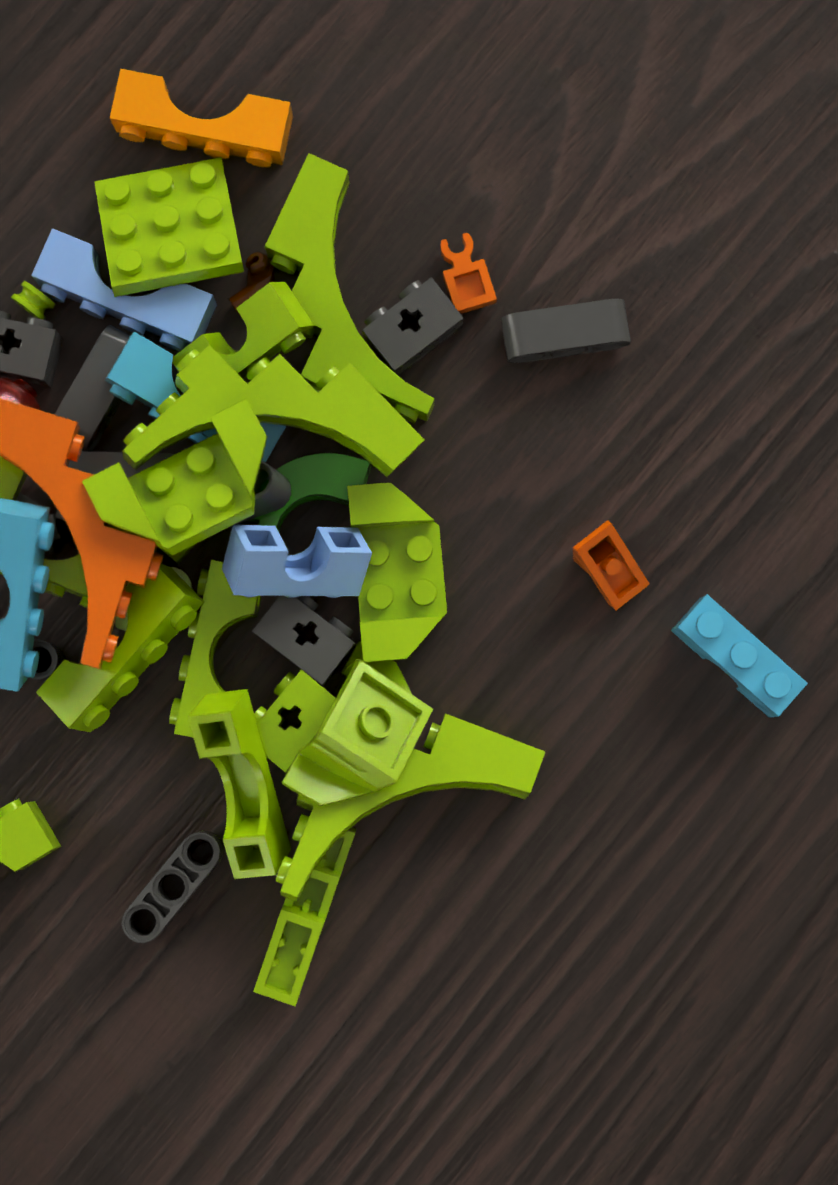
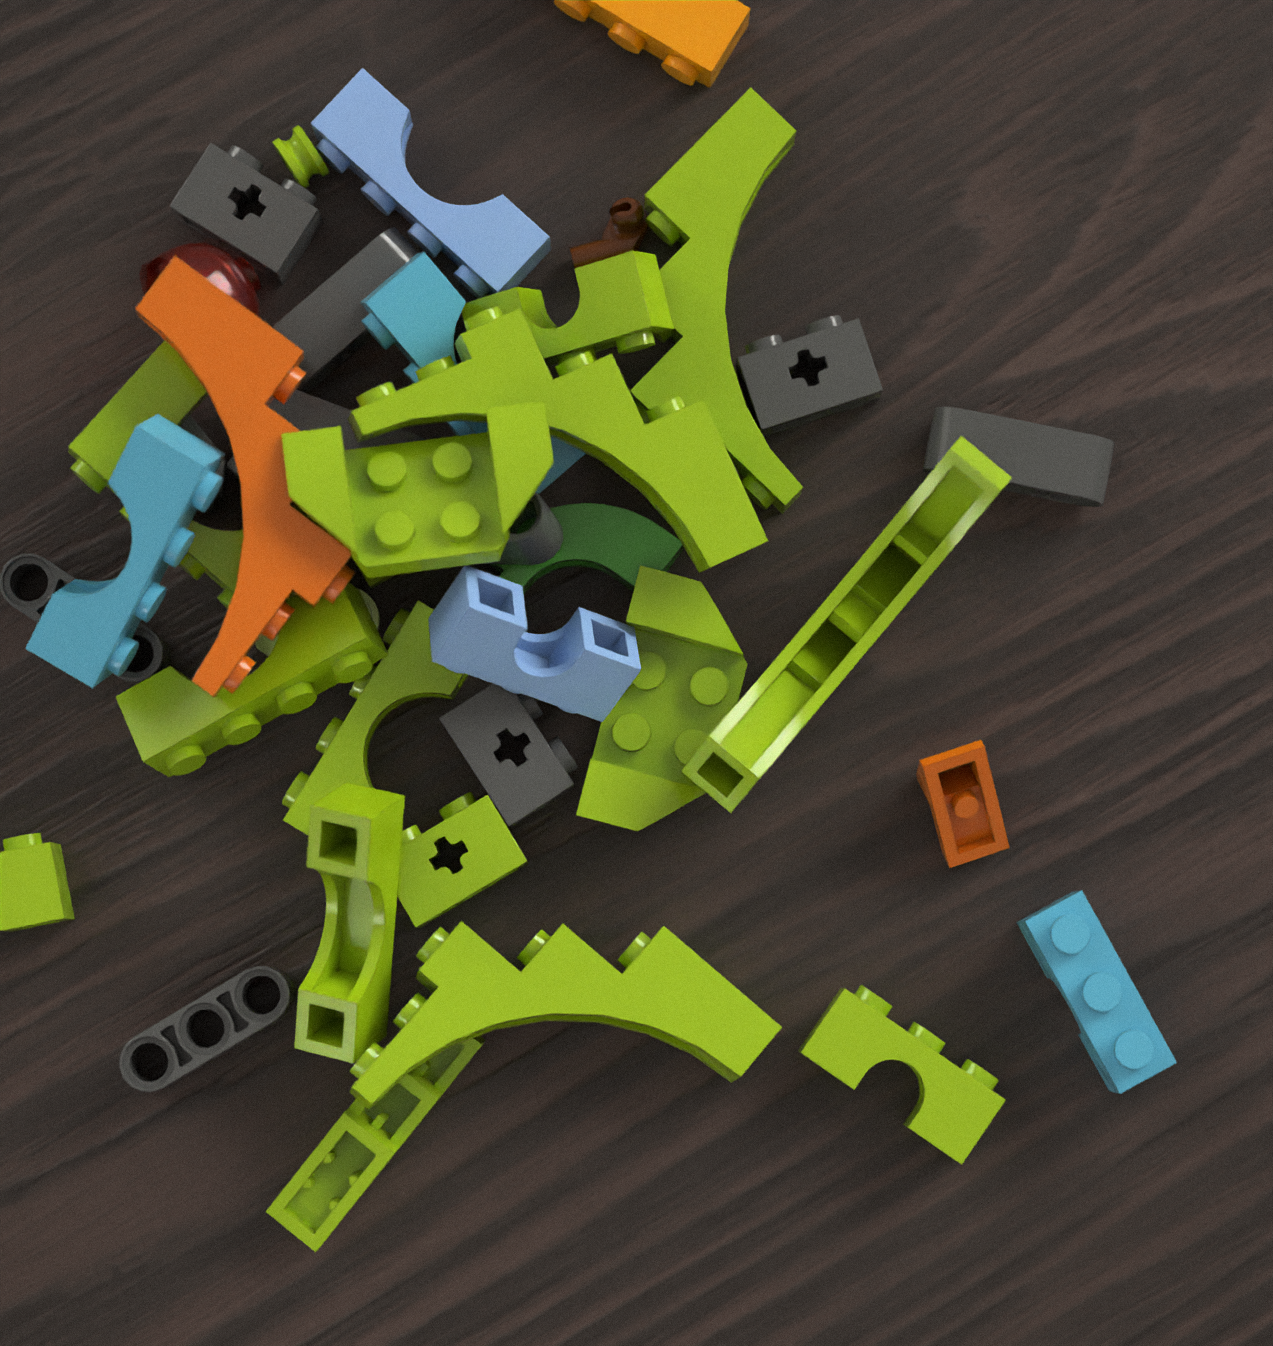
camera: 20 degrees right, 0 degrees up
(168, 227) = (522, 121): lime plate -> none
(362, 736) = (539, 916): lime piece -> none
(467, 281) = (908, 341): orange plate -> none
(494, 475) = (846, 624): none -> lime arch
(671, 760) = (952, 1101): none -> lime arch

